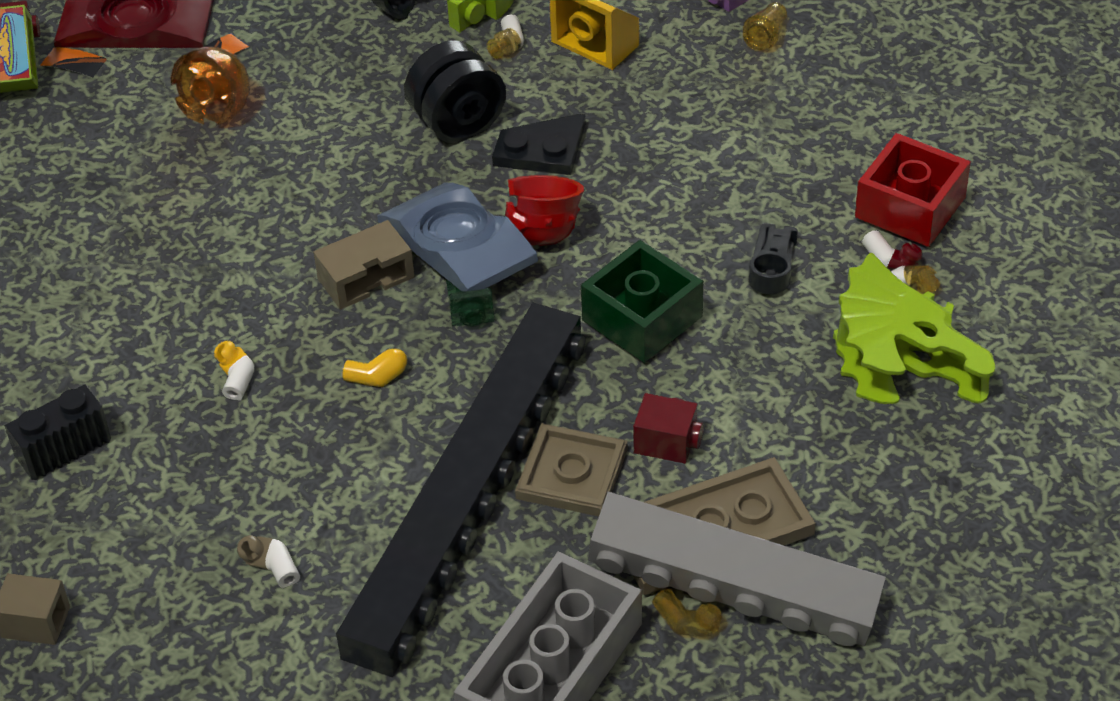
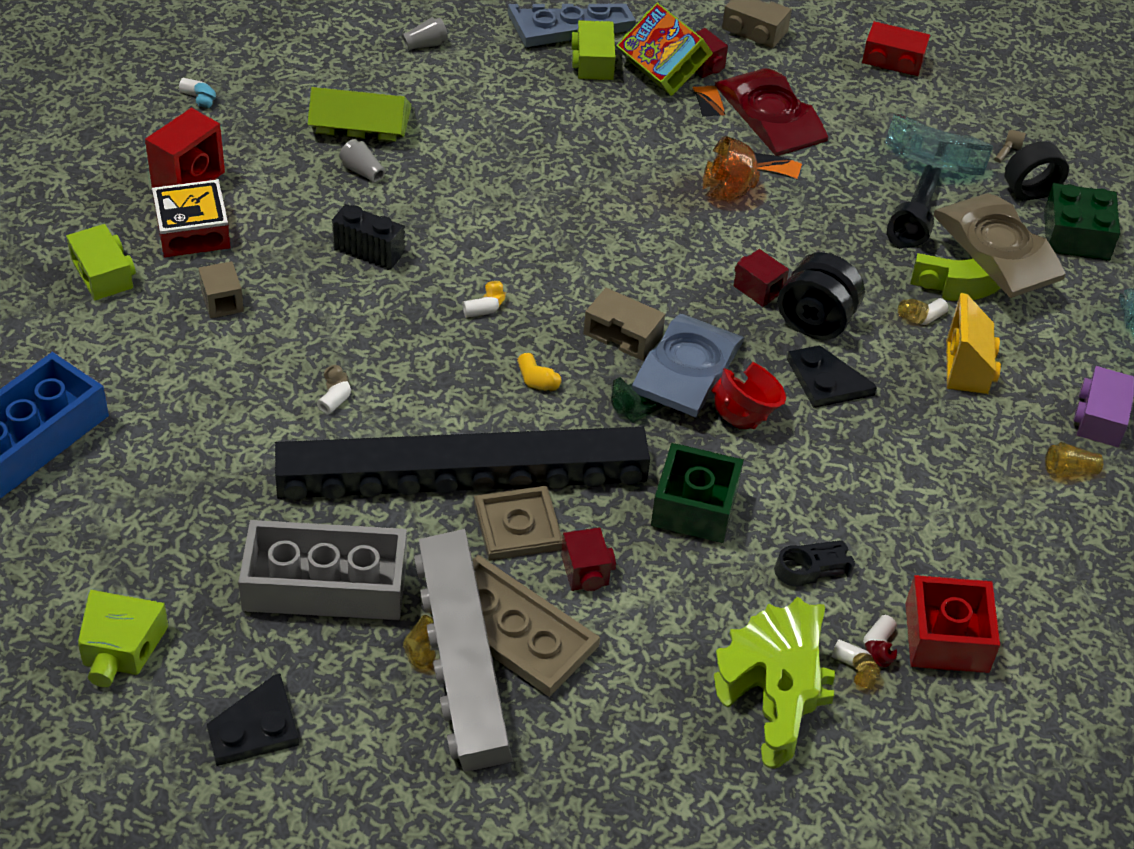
camera: 55 degrees right, 0 degrees up
(378, 131) = (760, 277): none -> dark red brick

